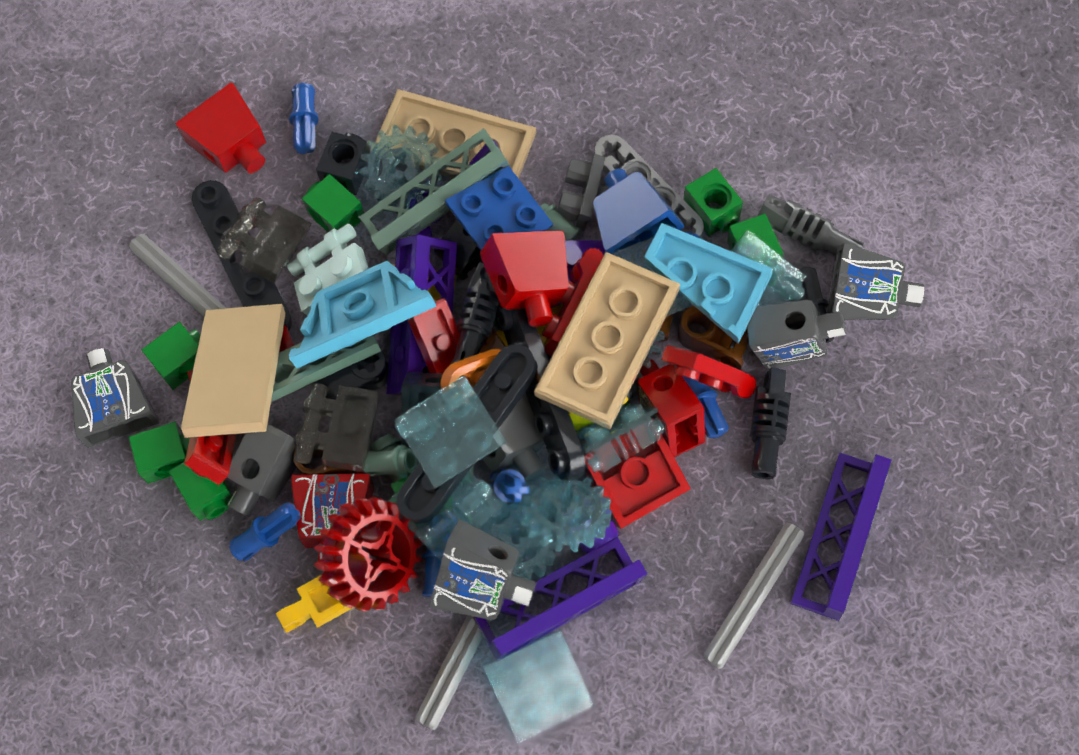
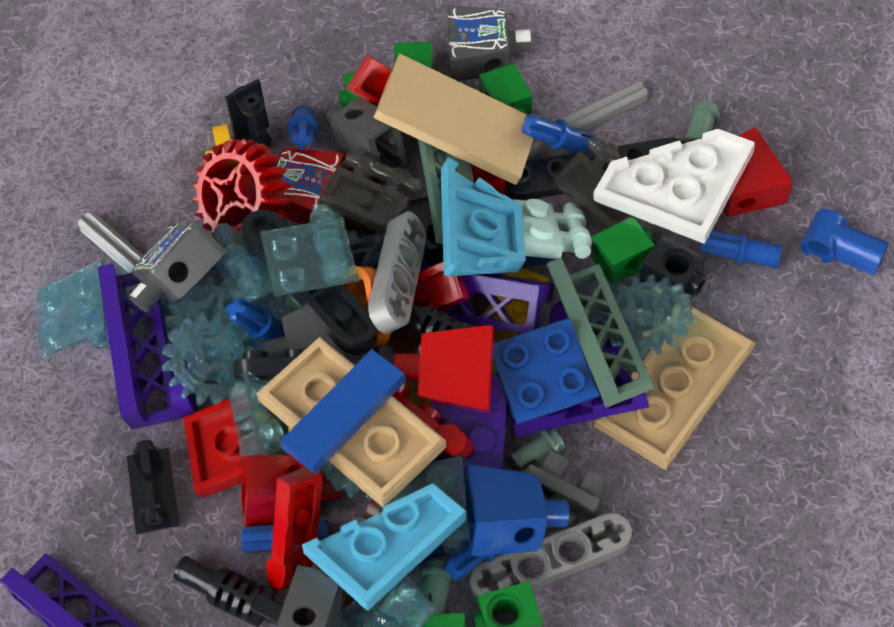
camera: 105 degrees right, 10 degrees down
(170, 180) = (703, 119): none -> sand green pin
(218, 289) = (556, 134): none -> blue axle
(260, 163) = (678, 183): none -> white plate
(268, 581) = (249, 113): none -> black hinge
(278, 46) = (833, 238): none -> blue piece
(437, 355) = (397, 273): none -> light grey beam
(610, 336) = (342, 411): none -> blue tile
(698, 532) = (152, 488): none -> black hinge
(753, 595) = (70, 523): light grey axle -> none

